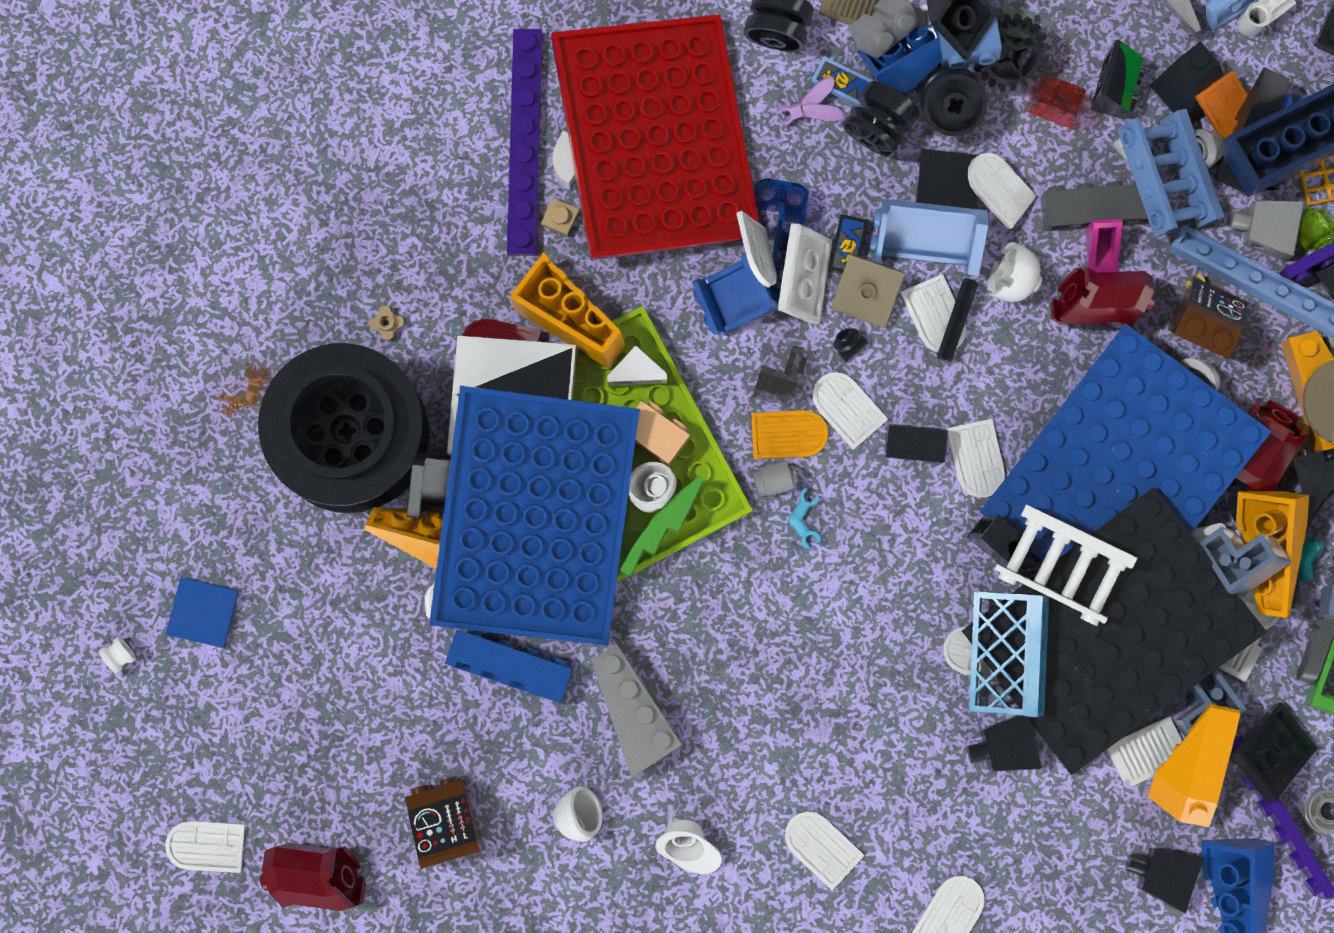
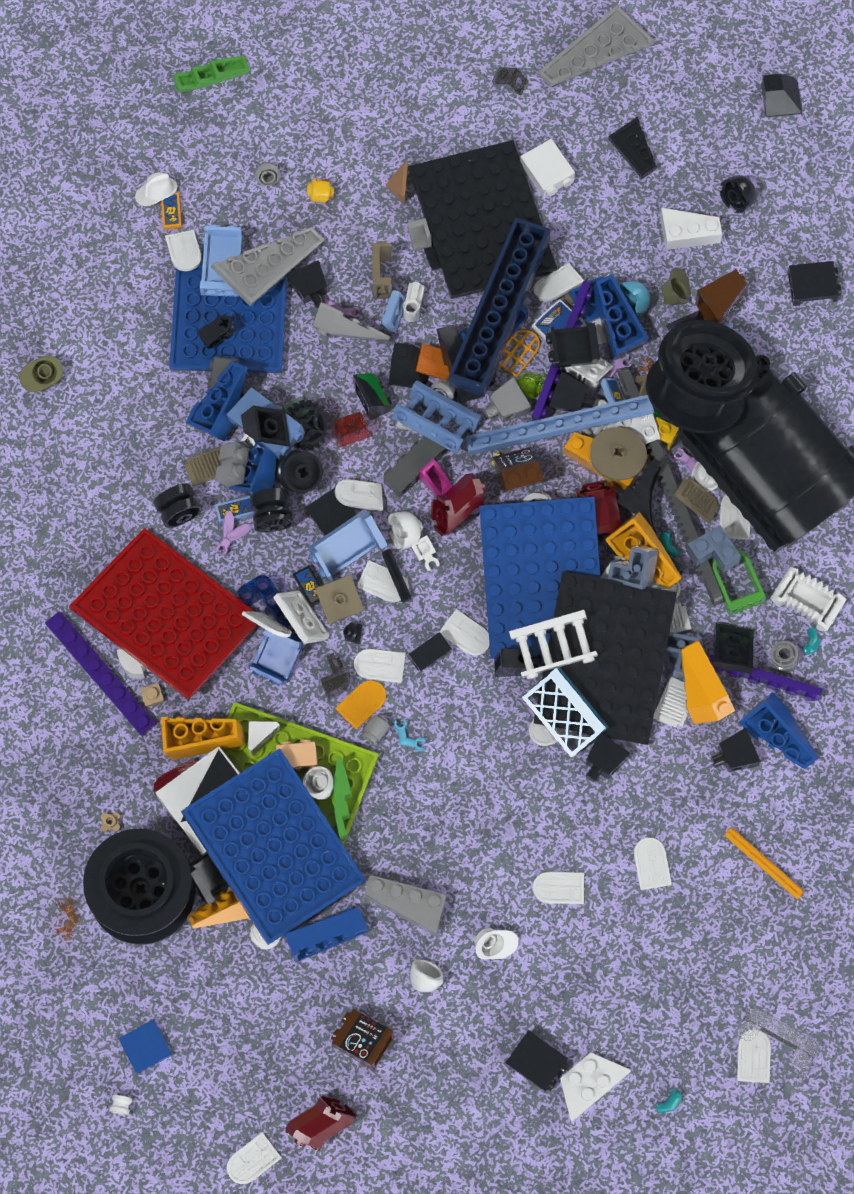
camera: 40 degrees left, 10 degrees down
(1015, 317) = (423, 550): none -> white plate

